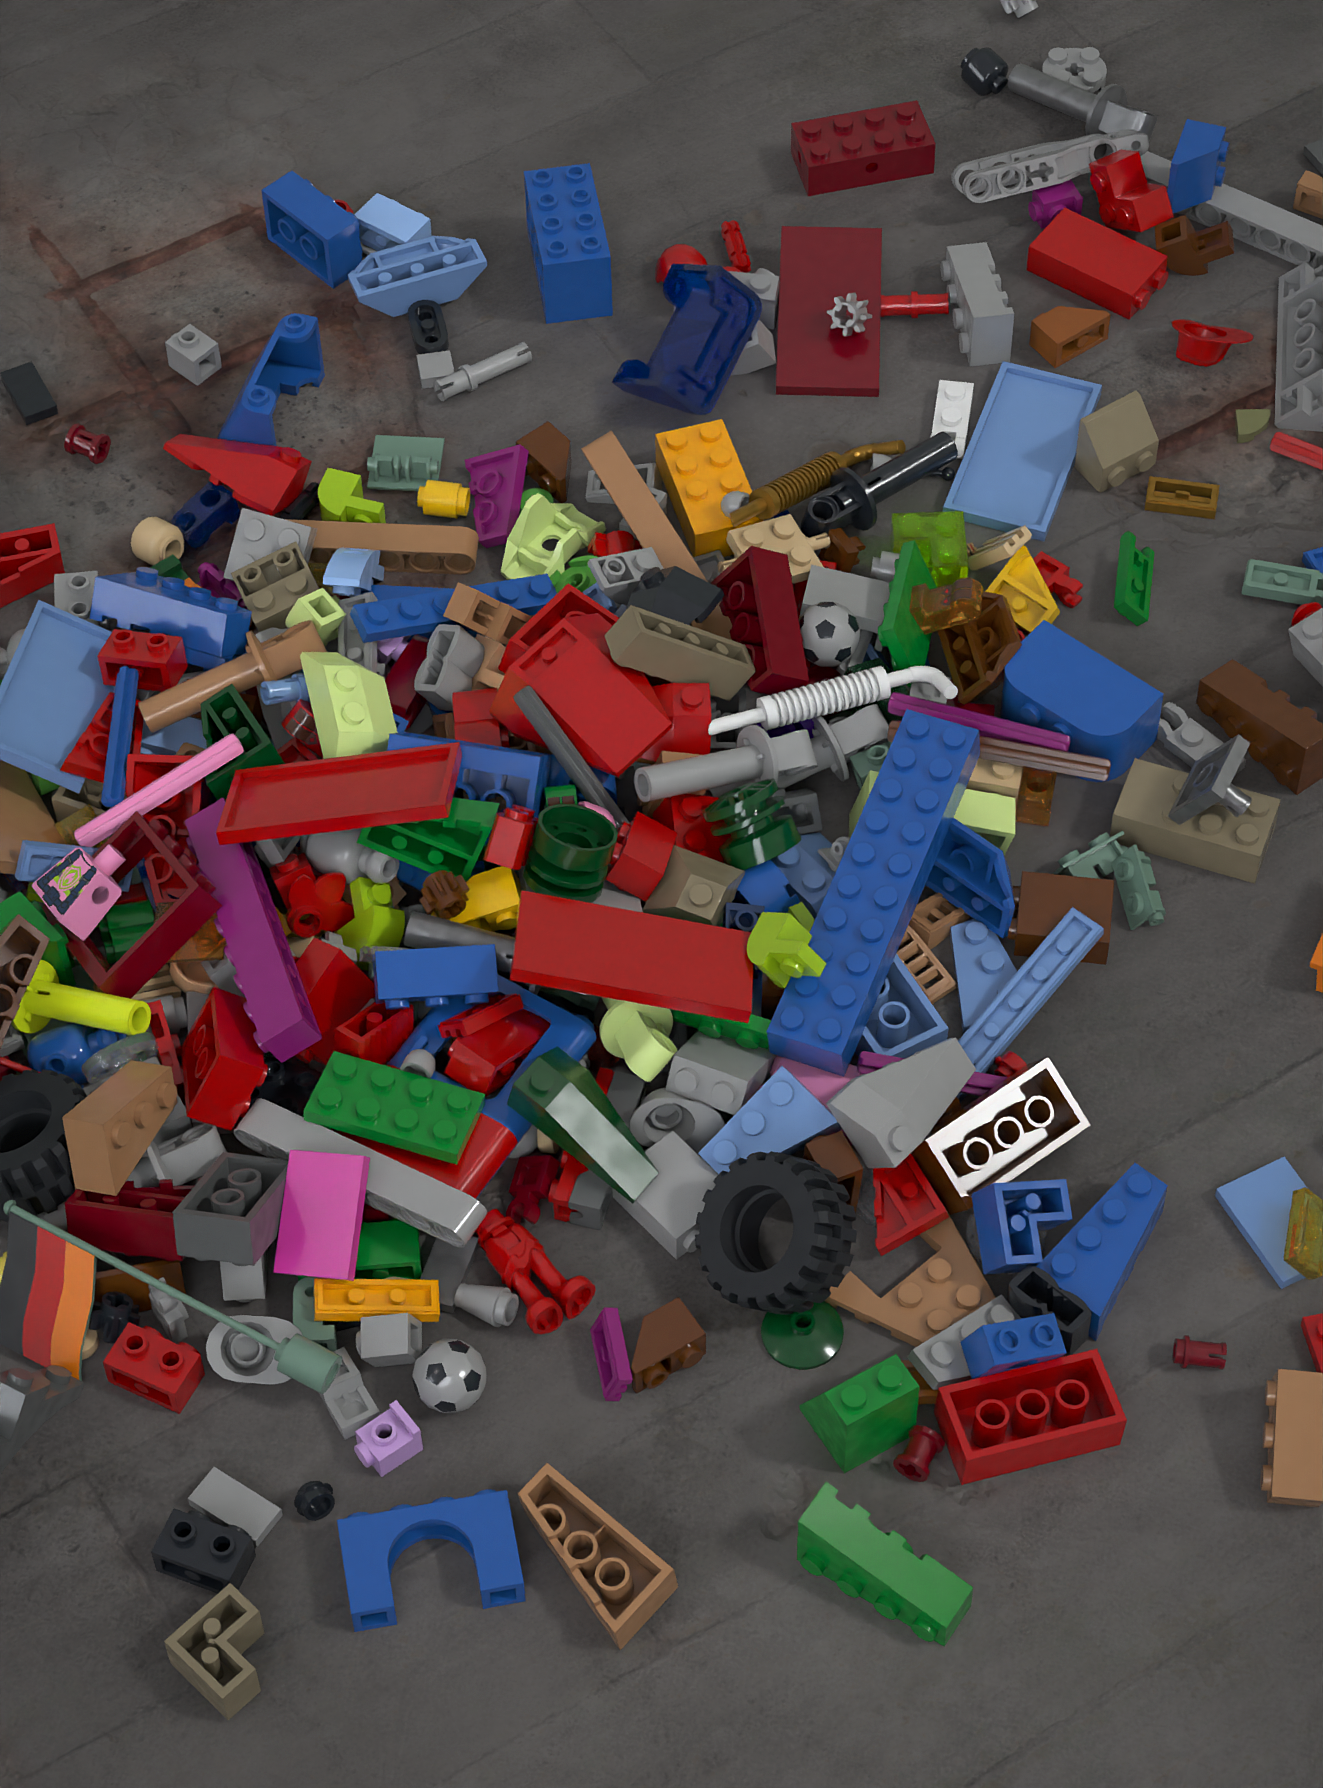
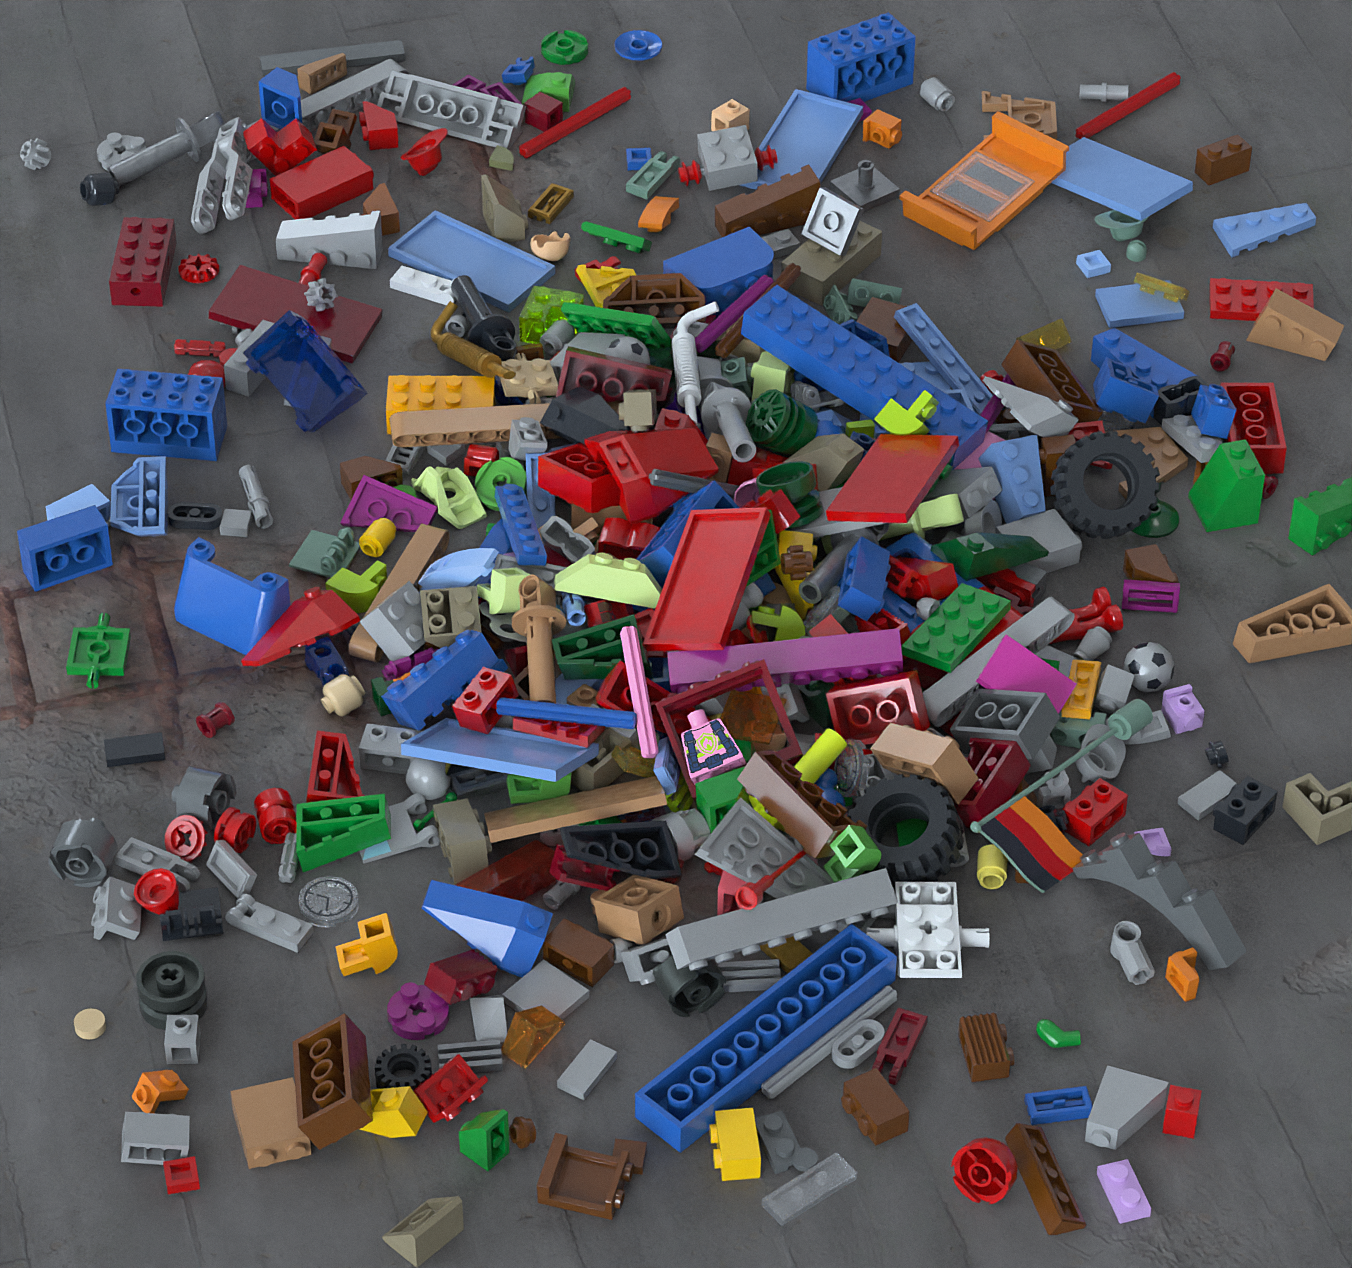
camera: 75 degrees left, 10 degrees down
(129, 1456) = (1156, 841): none -> lavender tile
(170, 309) = (98, 651): none -> green plate
(193, 354) = (151, 645): light grey brick -> none
(376, 1540) = (1262, 730): blue arch -> none
(484, 614) = (543, 505): medium nougat slope -> none
(733, 501) = (483, 379): light grey hinge -> none
(881, 212) = (207, 272): none -> red gear
(946, 605) = (628, 295): clear orange leg -> none
(999, 548) = (566, 279): tan tile -> none
(1077, 514) = (550, 247): none -> light nougat hair
(1130, 1113) = (1050, 335): none -> clear yellow plate
(1199, 607) = (657, 213): none -> orange slope
(1240, 284) = (378, 127): none -> red slope

